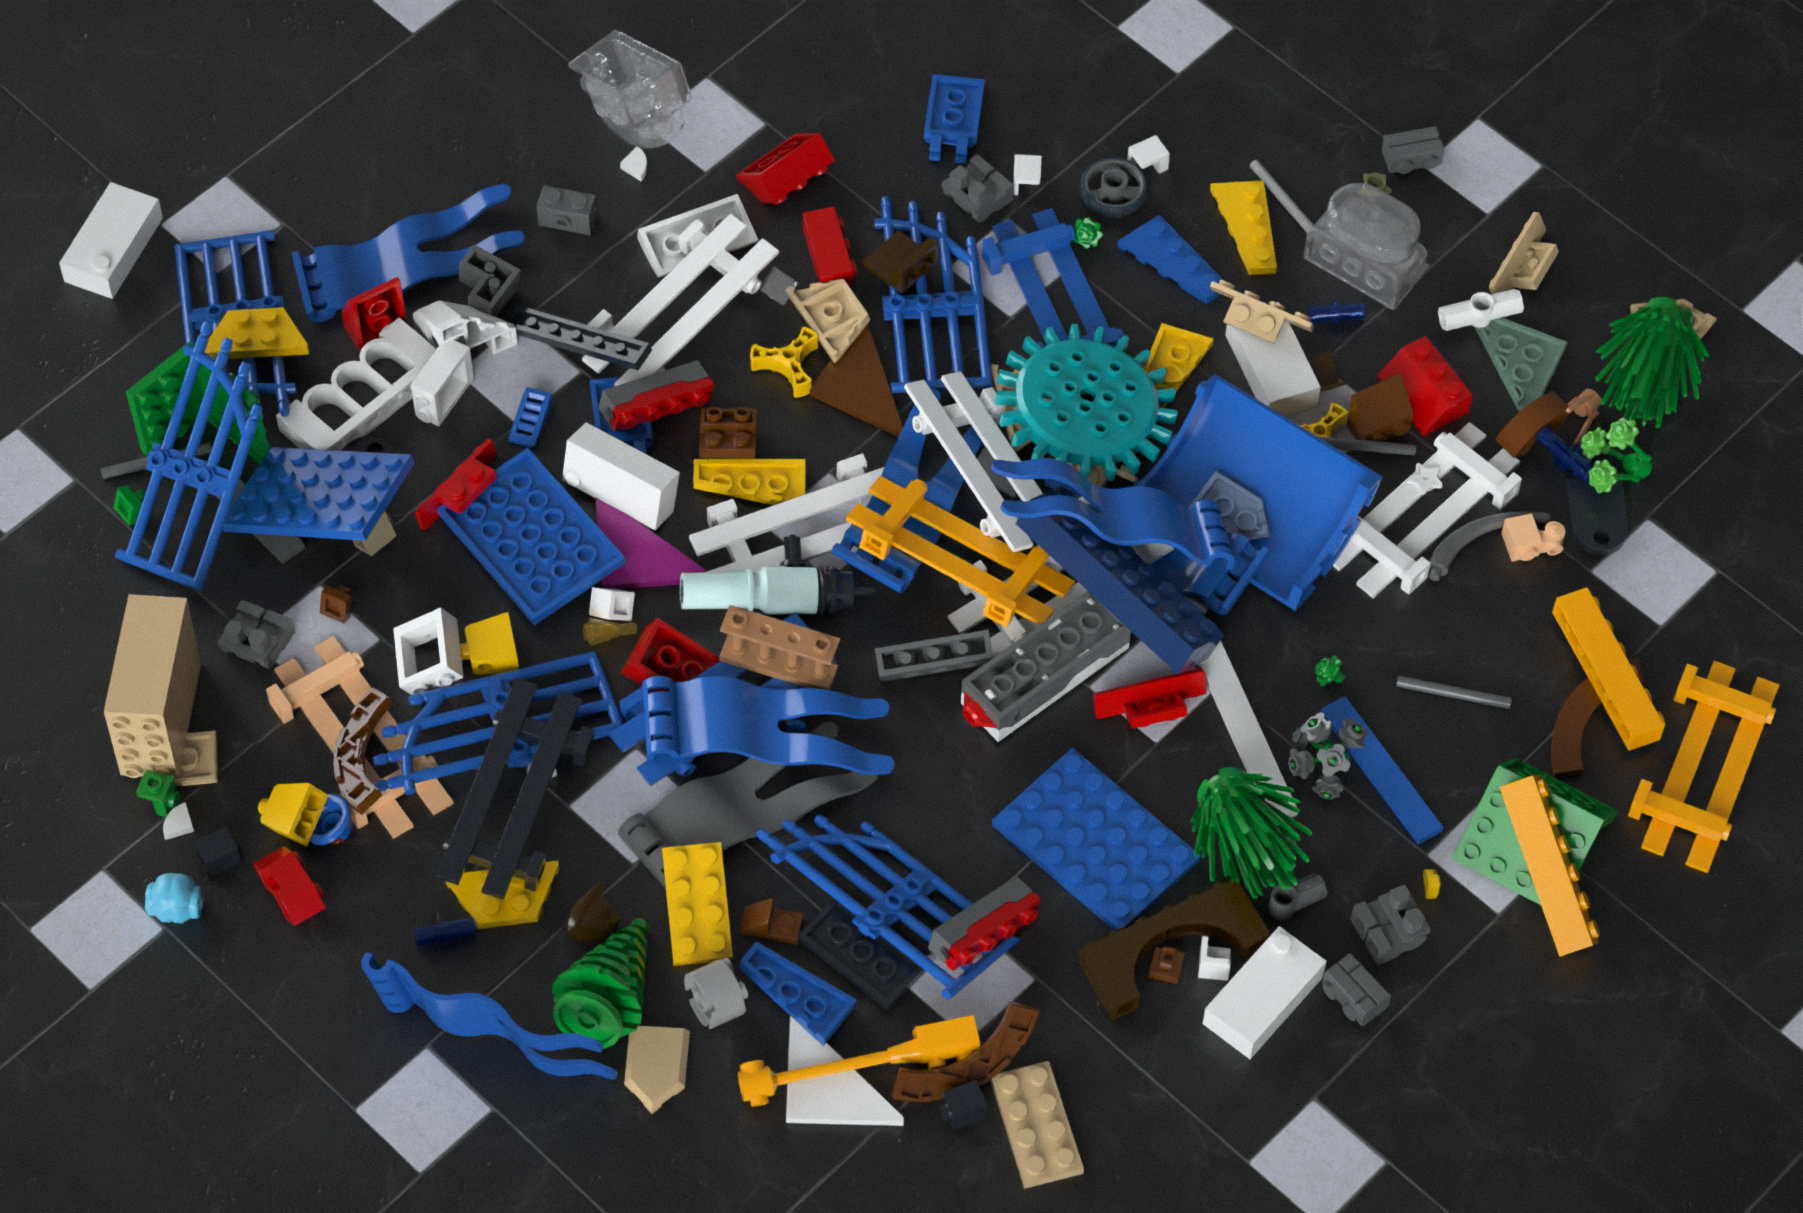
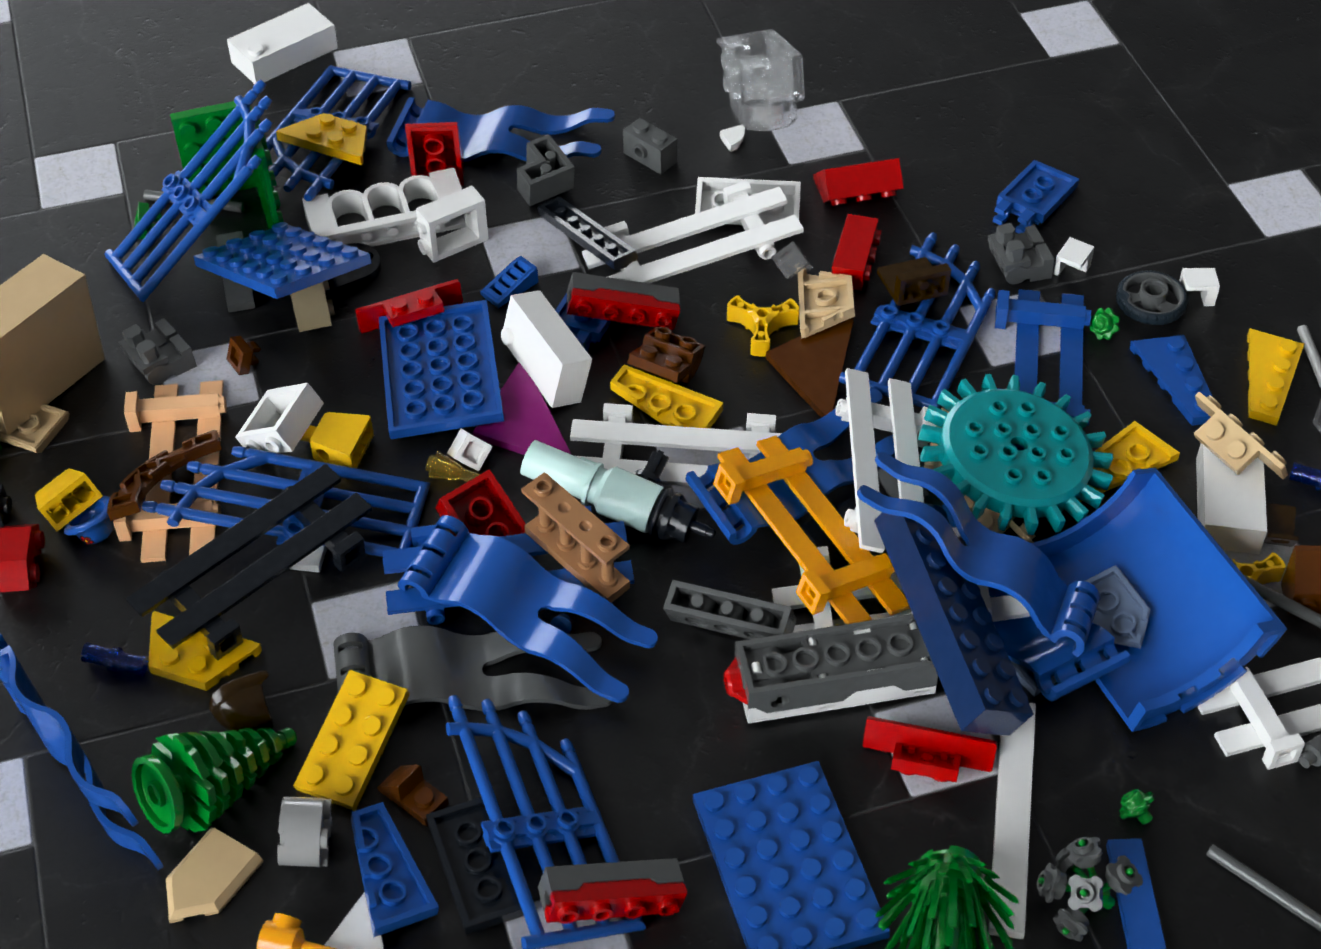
camera: 30 degrees right, 10 degrees down
(452, 321) = (501, 191): white brick -> none

